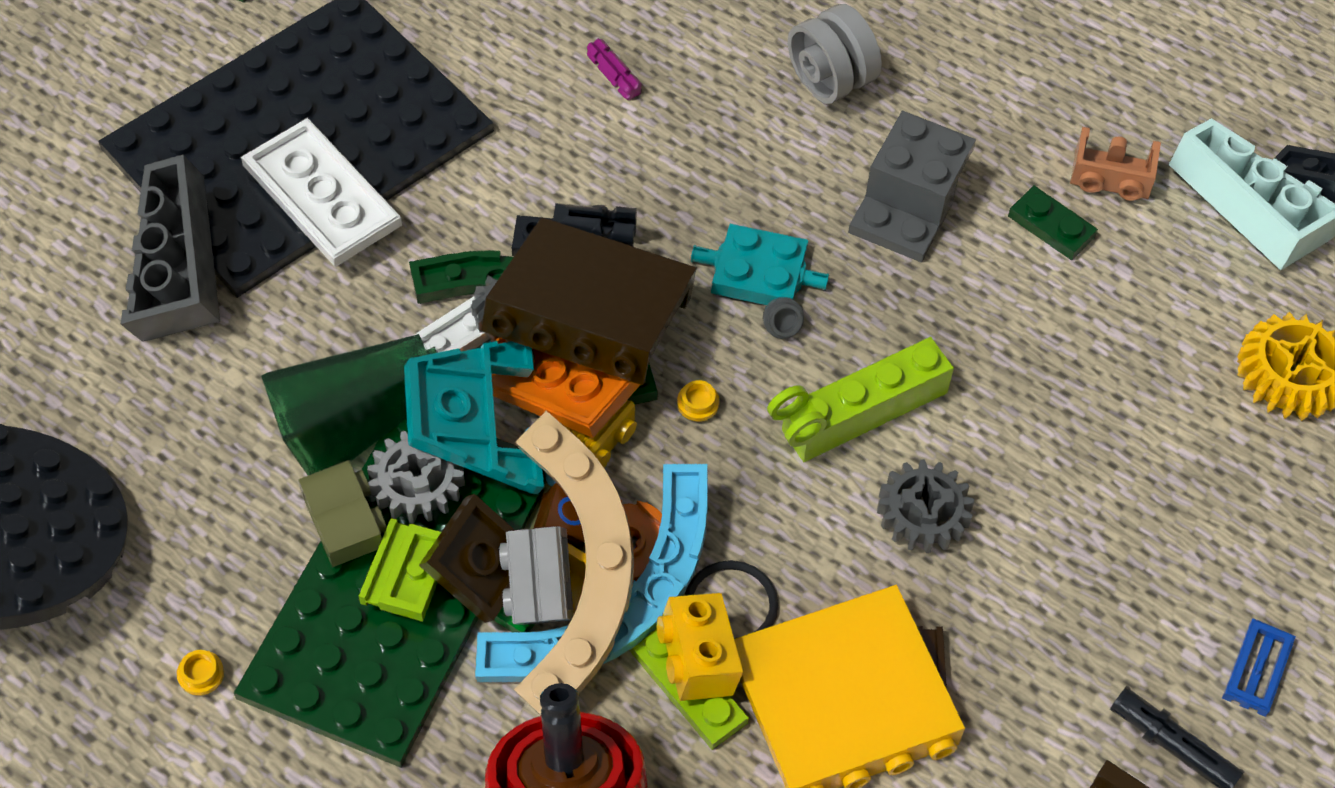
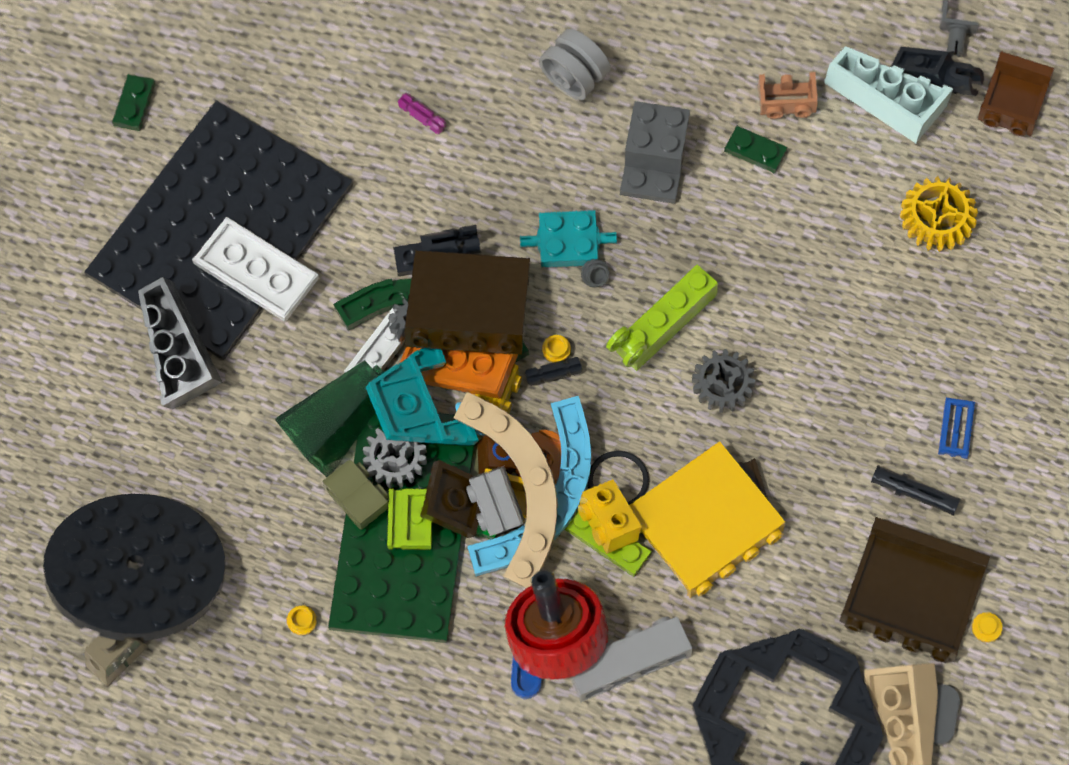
camera: 10 degrees left, 10 degrees up
(684, 429) = (553, 371): none -> black axle

